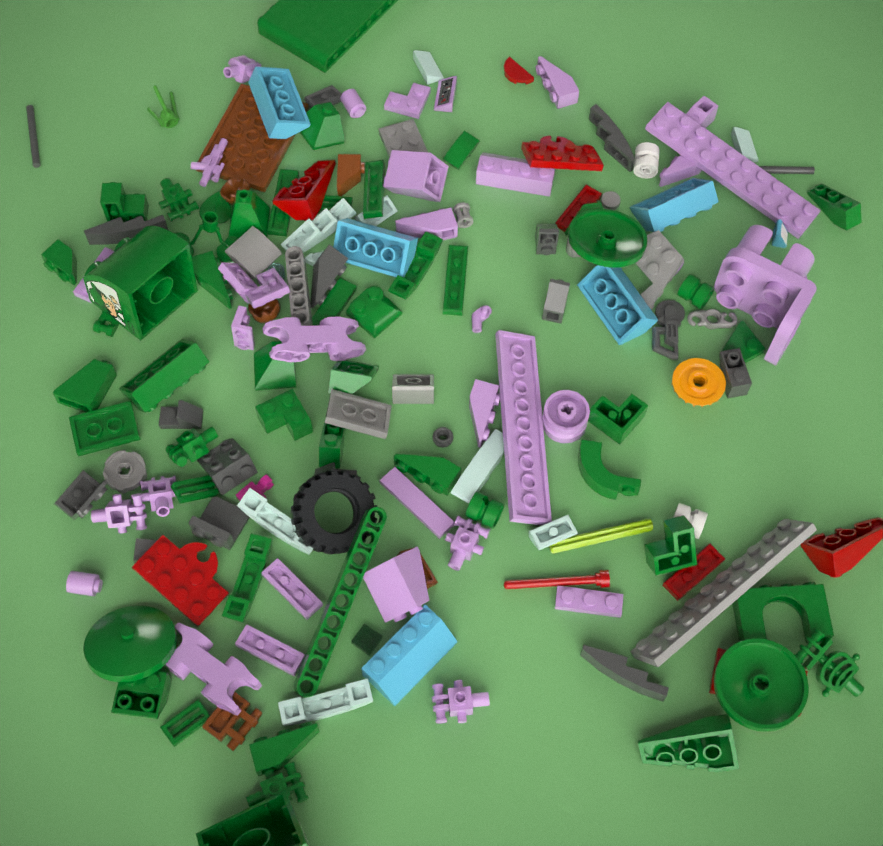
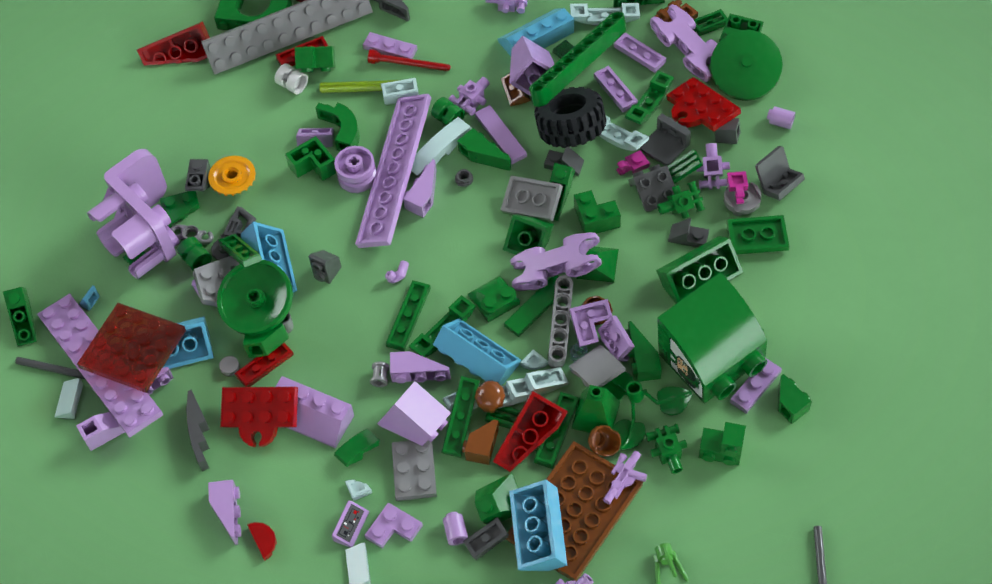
camera: 160 degrees left, 5 degrees down
(87, 387) = (772, 271): green slope -> none
(115, 230) = (717, 419): dark grey slope -> none
(120, 513) = (745, 158): lavender piece -> none
(129, 473) = (738, 182): none -> dark pink plate
(241, 330) = (621, 287): lavender bracket -> none
(324, 273) = (531, 334): dark grey slope -> none
(349, 200) = (490, 396): none -> dark orange hair
(413, 389) = (477, 218): light grey slope -> none
(449, 123) = (357, 489): none -> light aqua tile
(546, 238) = (308, 328): dark grey slope -> none
(630, 460) = (325, 135): none -> lavender slope
(645, 283) = (239, 250): none -> green tile
(646, 160) = (175, 395): white wheel -> none
(703, 171) = (131, 347): none -> clear red plate

